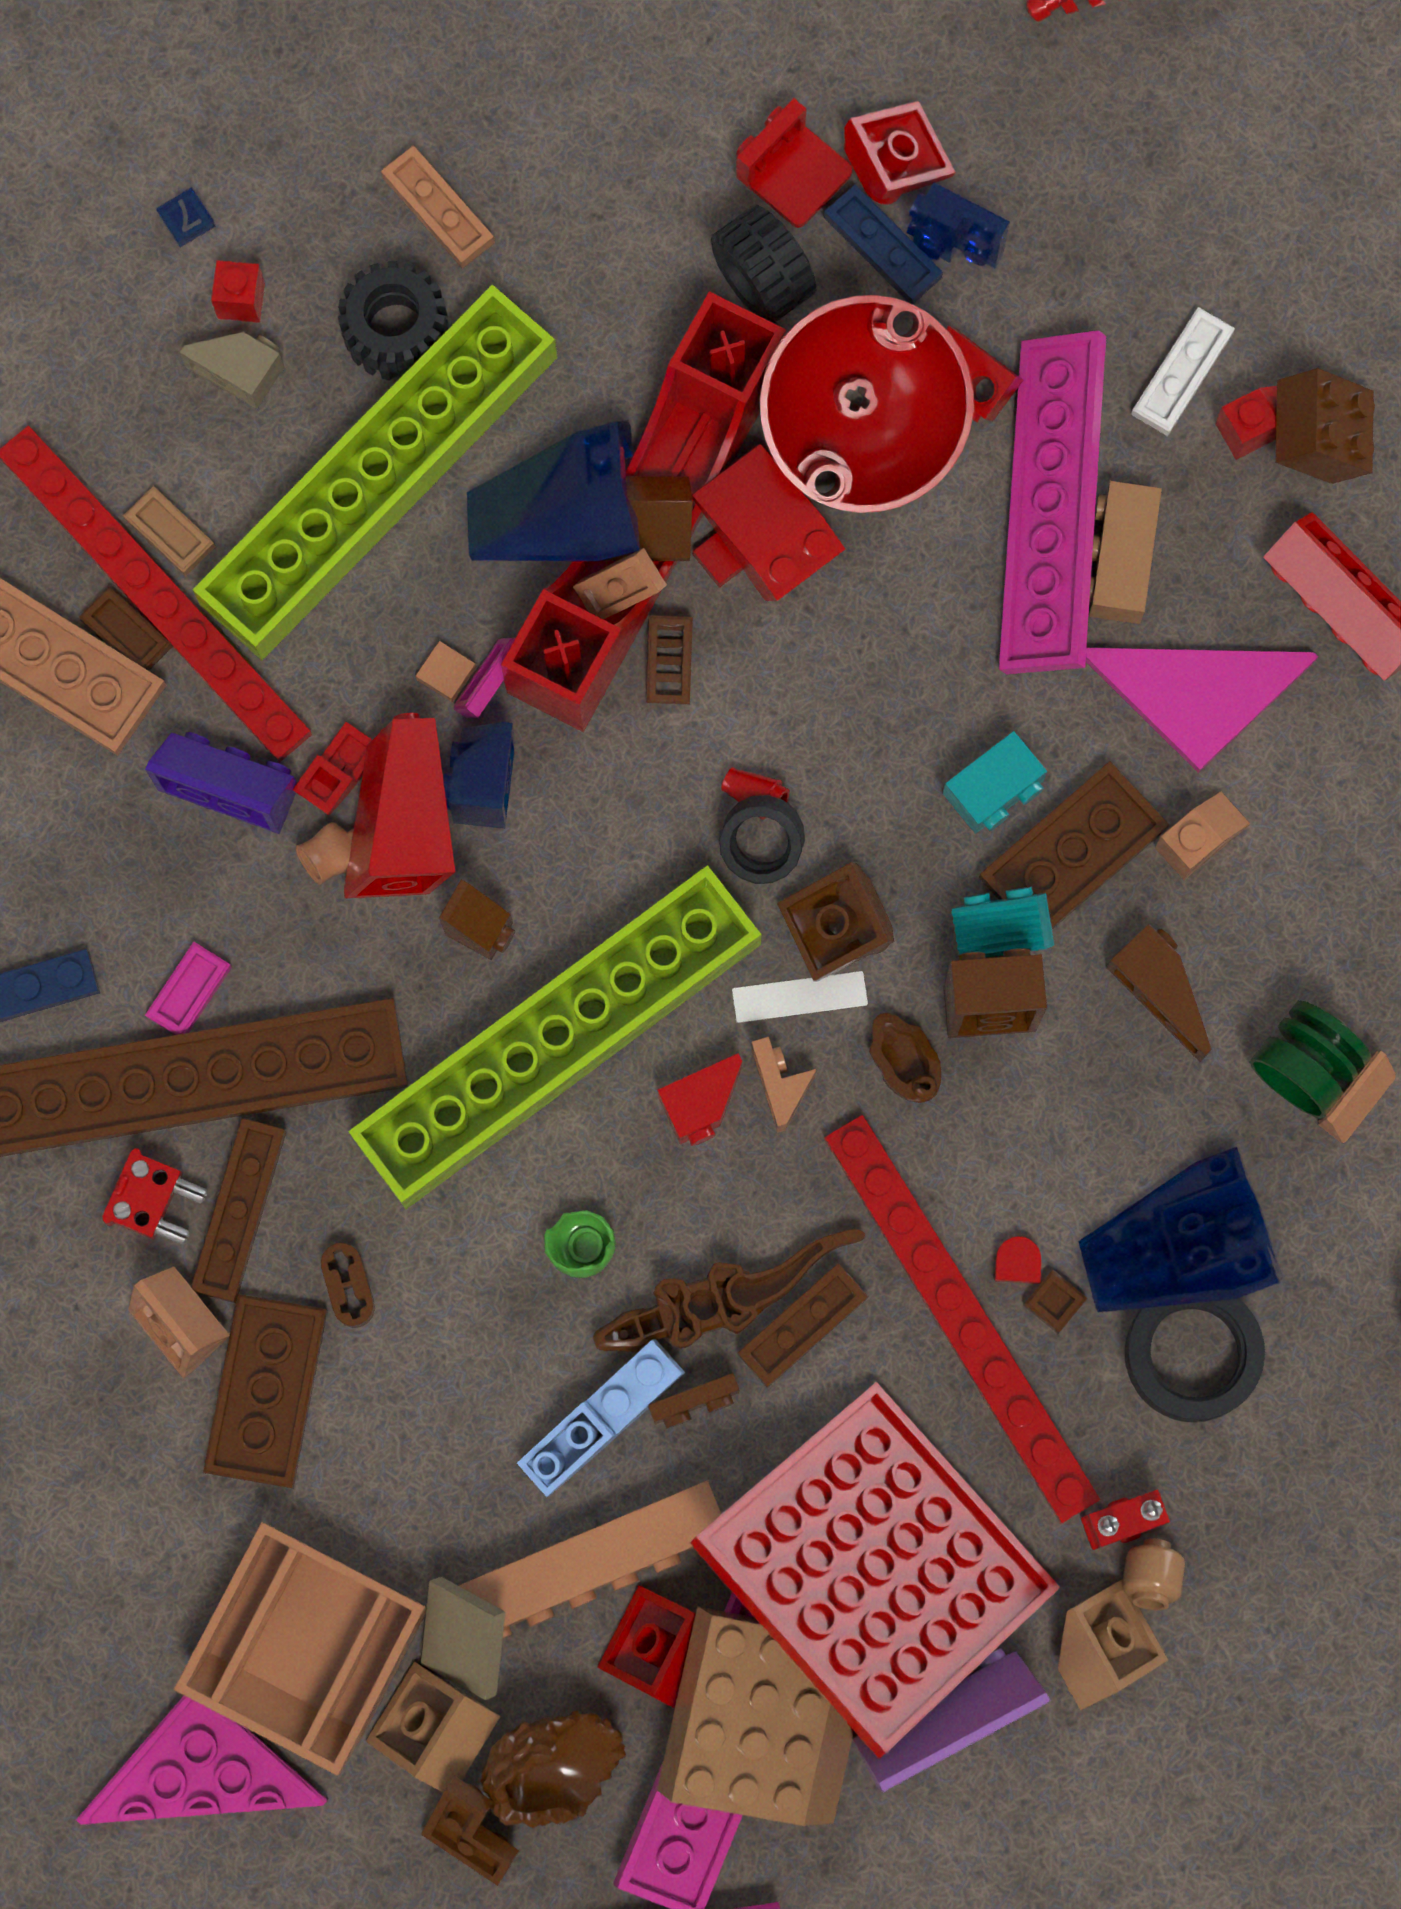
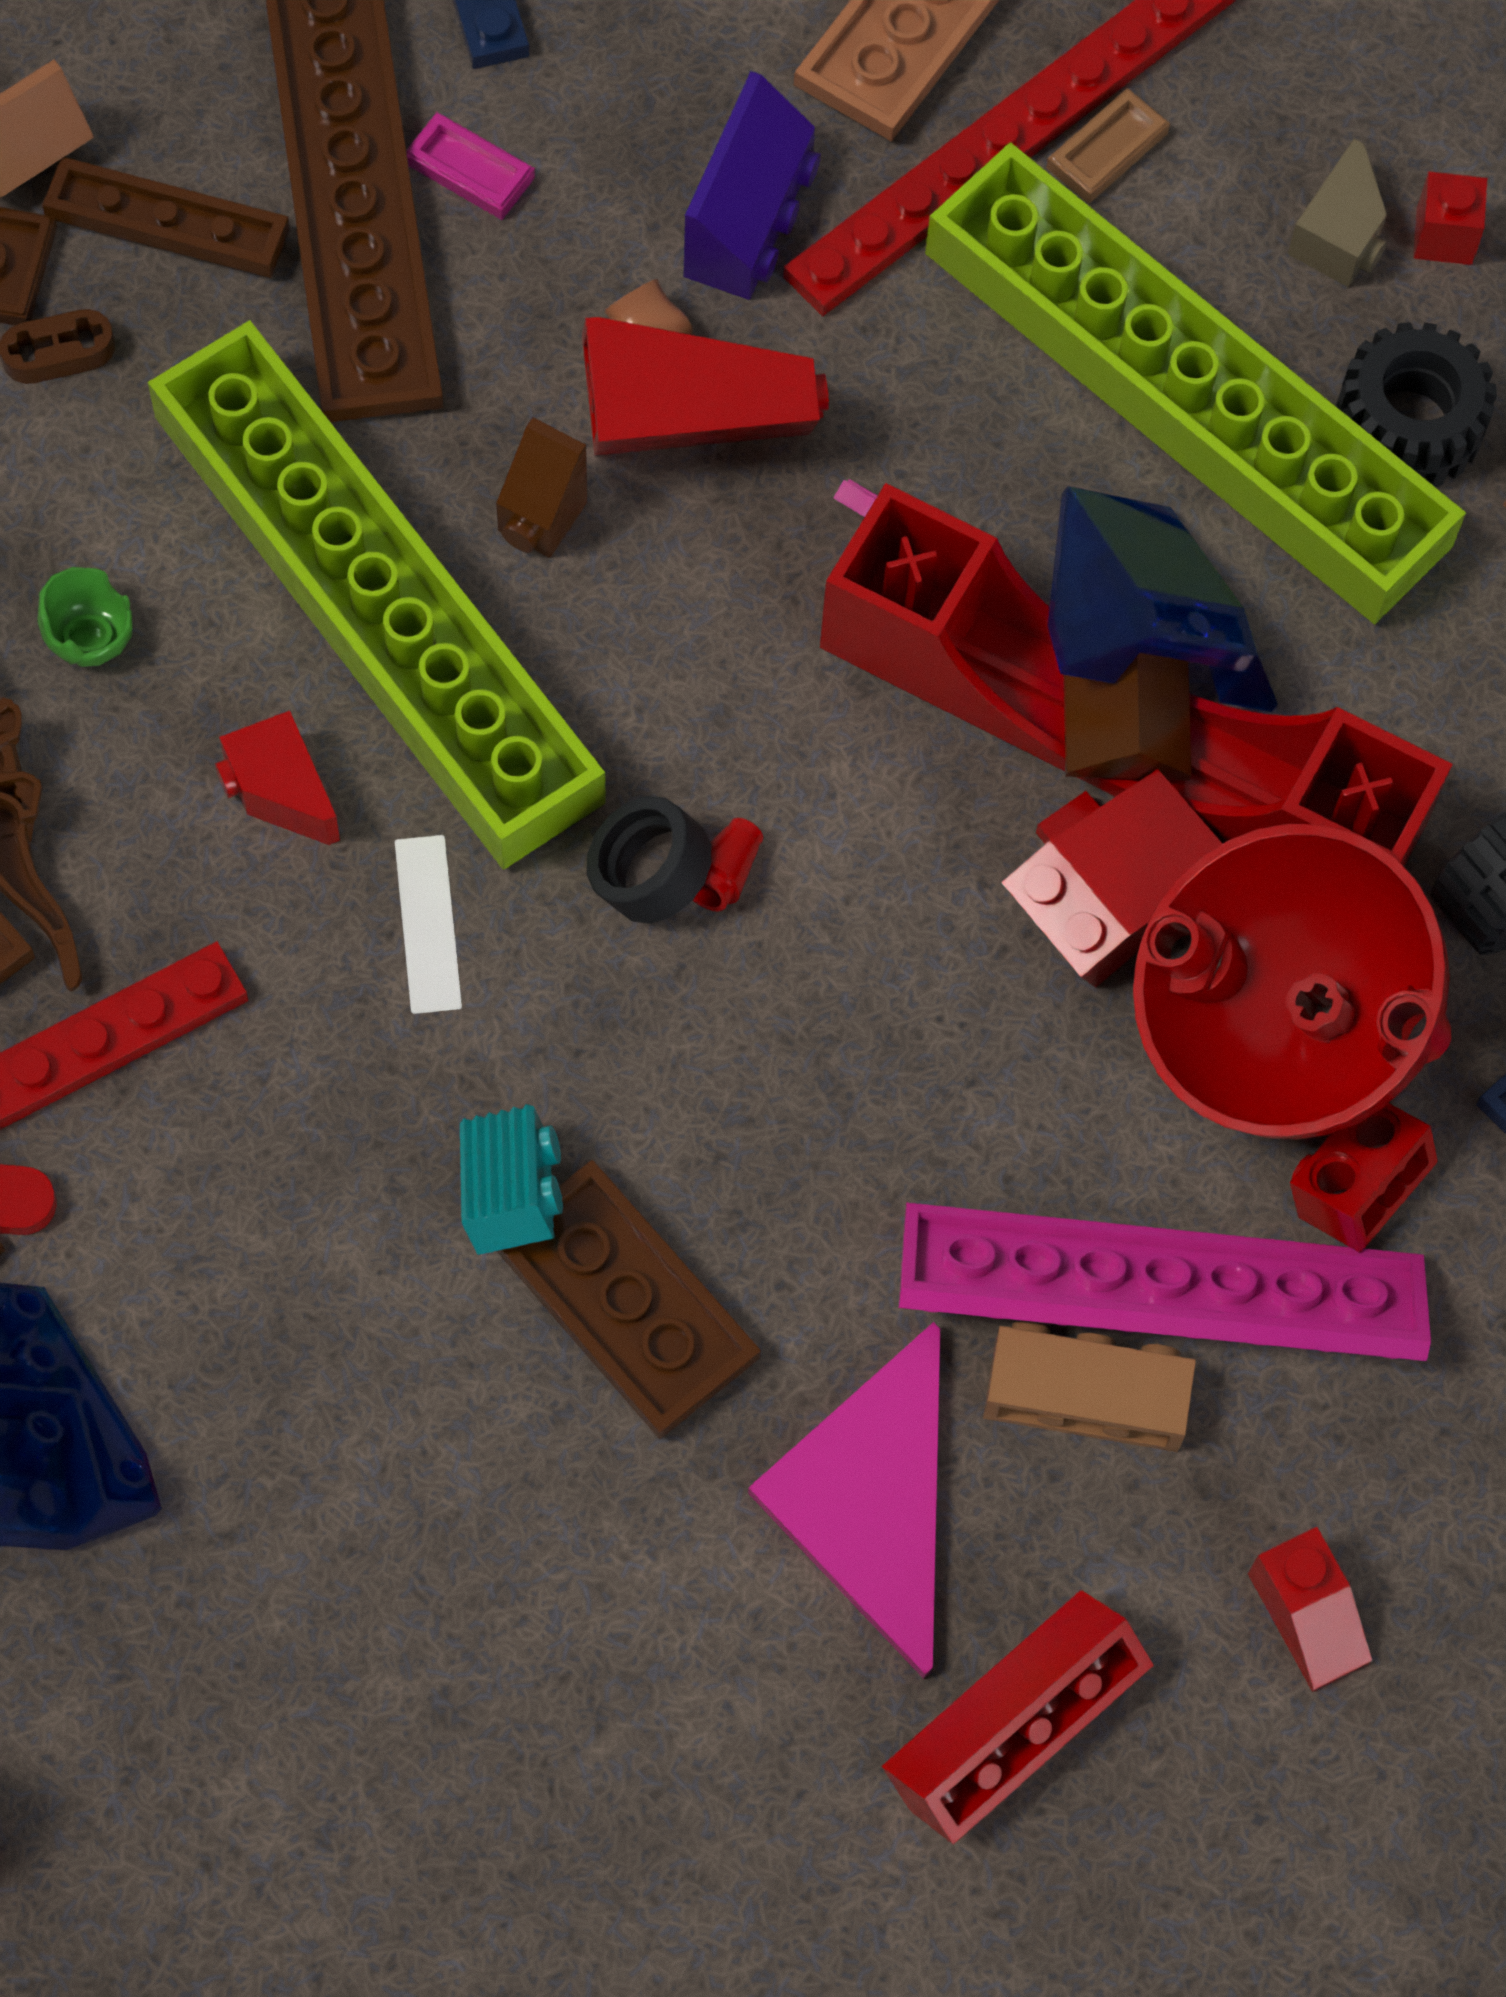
camera: 85 degrees right, 10 degrees down
(125, 629) = (967, 92): reddish brown tile -> none
(139, 1194) = (191, 109): red piece -> none
(336, 771) = (758, 321): red slope -> none
(445, 671) = (910, 470): nougat tile -> none
(481, 775) = (746, 501): clear blue slope -> none
(620, 585) = (1017, 663): nougat plate -> none
(672, 624) = (948, 736): reddish brown slope -> none
(782, 1094) = (278, 880): nougat slope -> none
(837, 921) = (529, 966): reddish brown slope -> none
(905, 1058) = (321, 1047): reddish brown arm -> none
(994, 994) = (396, 1146): reddish brown brick -> none
(995, 784) = (726, 1183): teal brick -> none
(1160, 983) = (415, 1412): reddish brown slope -> none
(1182, 371) = (1387, 1497): white tile -> none
(1201, 834) = (647, 1484): nougat slope -> none
(1315, 1053) = (270, 1602): dark green wheel -> none
(1324, 426) = (1291, 1685): reddish brown brick -> none
(1359, 1097) = (228, 1699): nougat slope -> none

